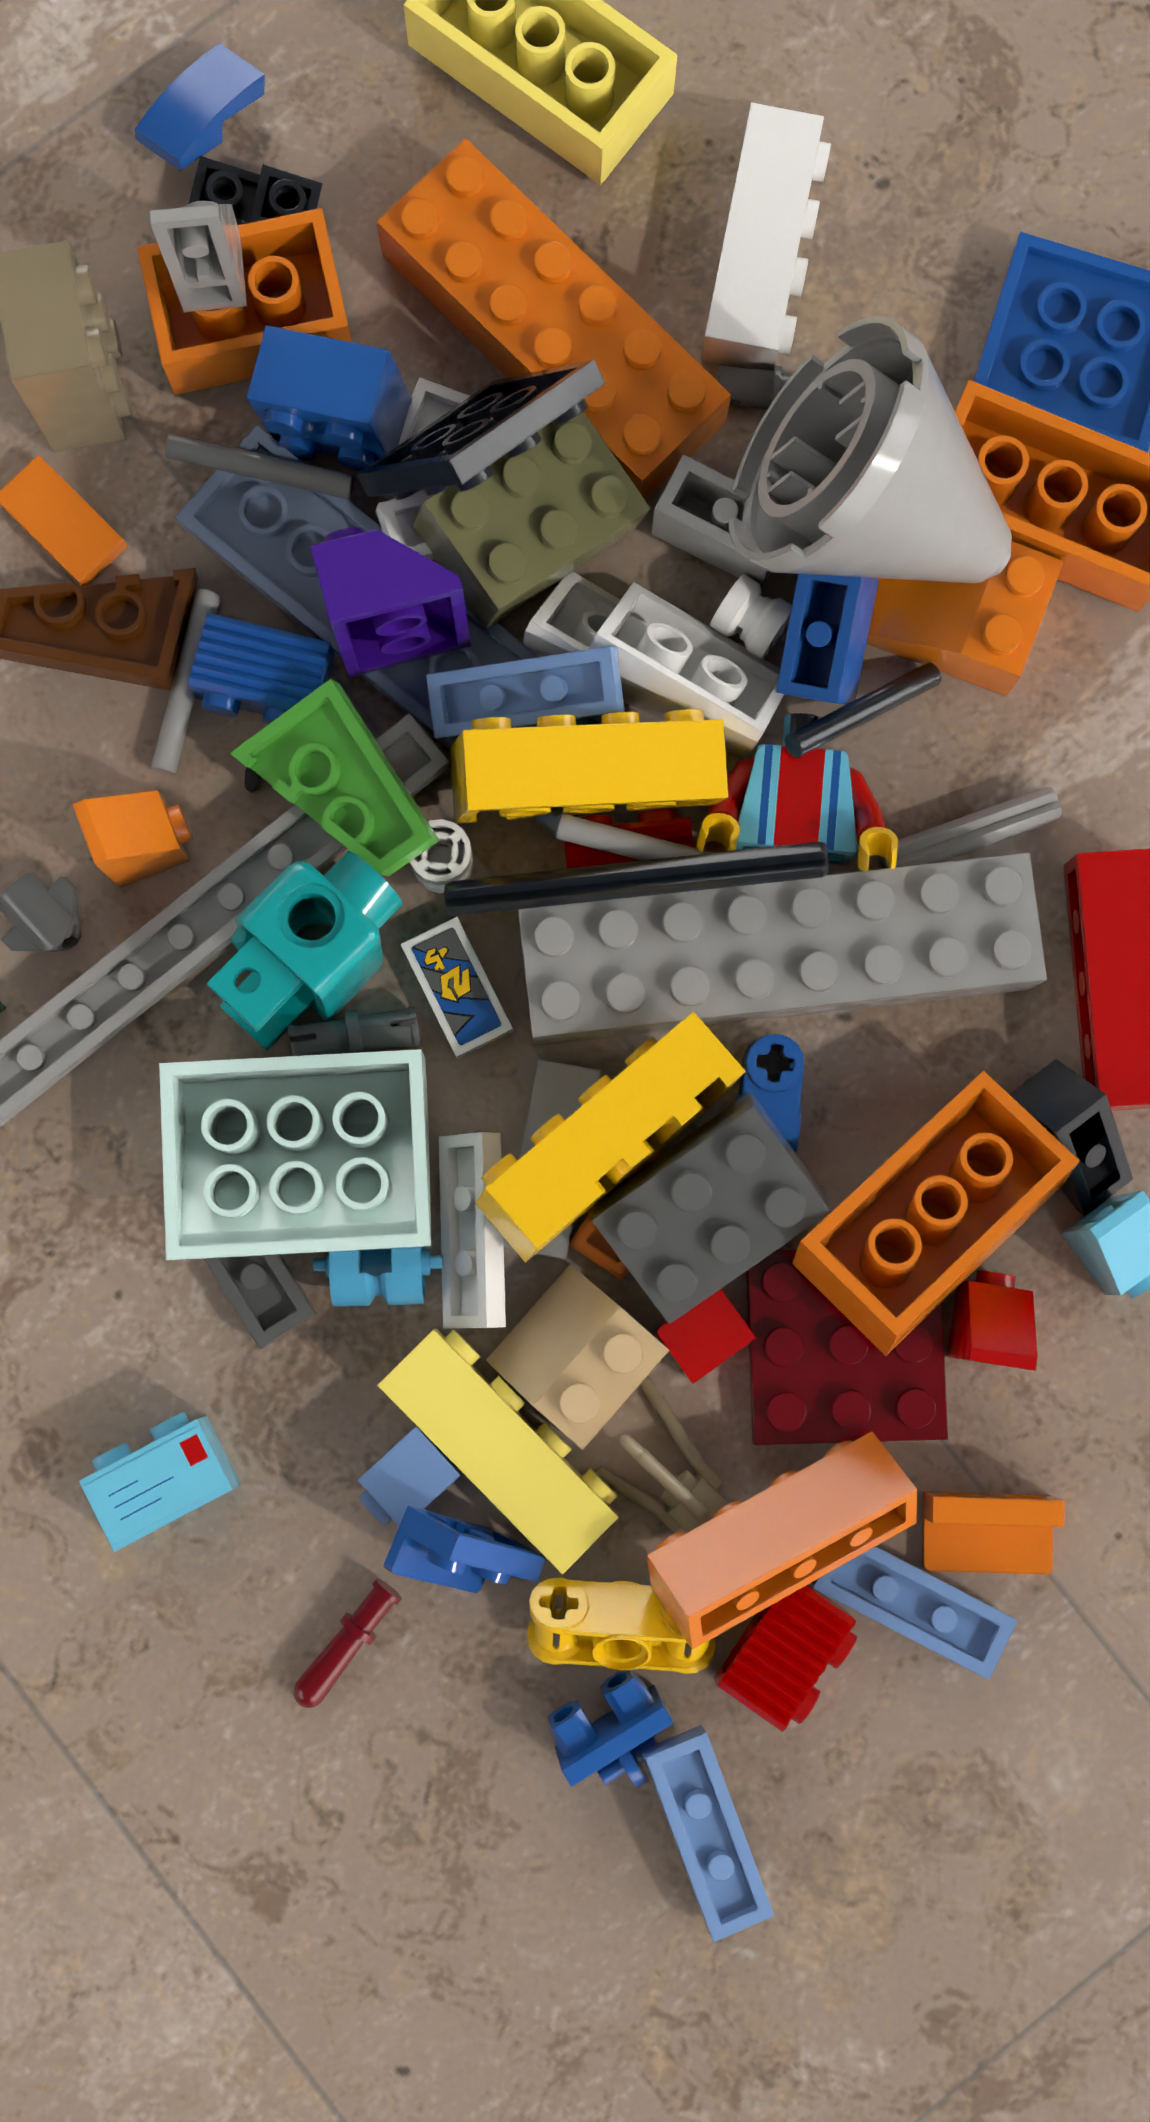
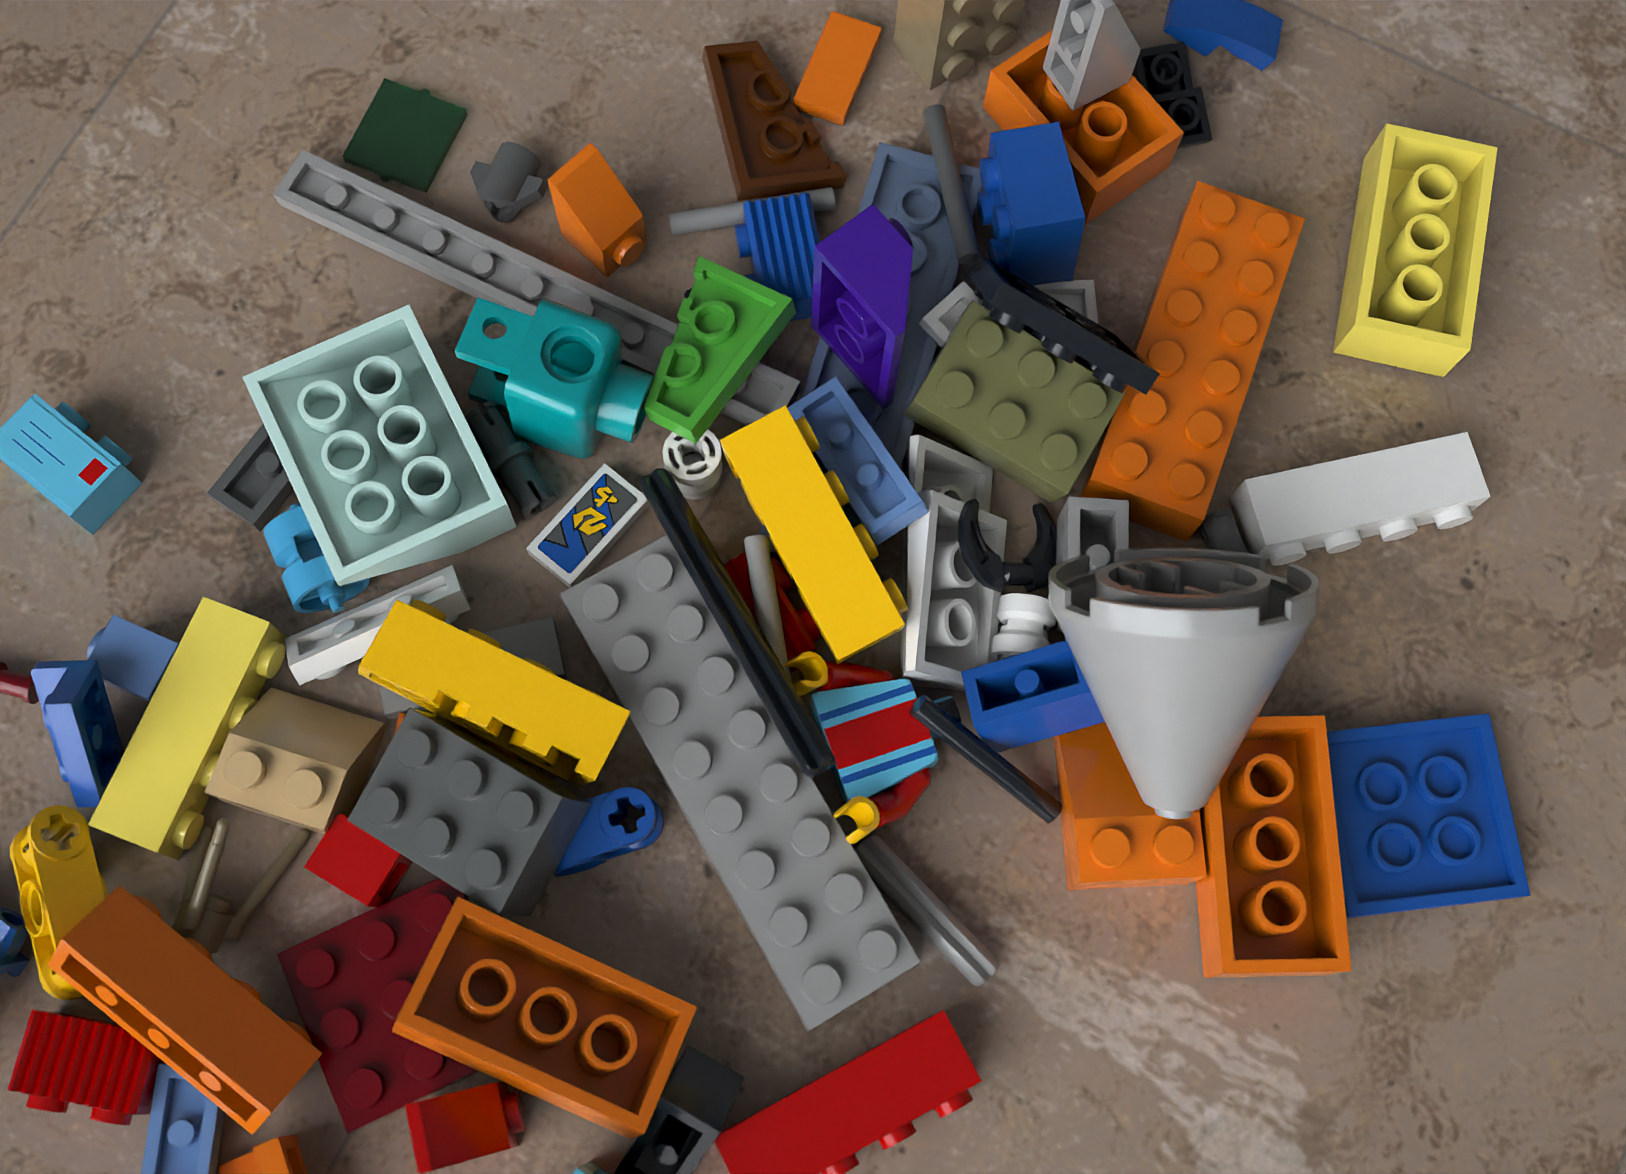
camera: 65 degrees right, 10 degrees down
(681, 619) = (988, 566): none -> black piece

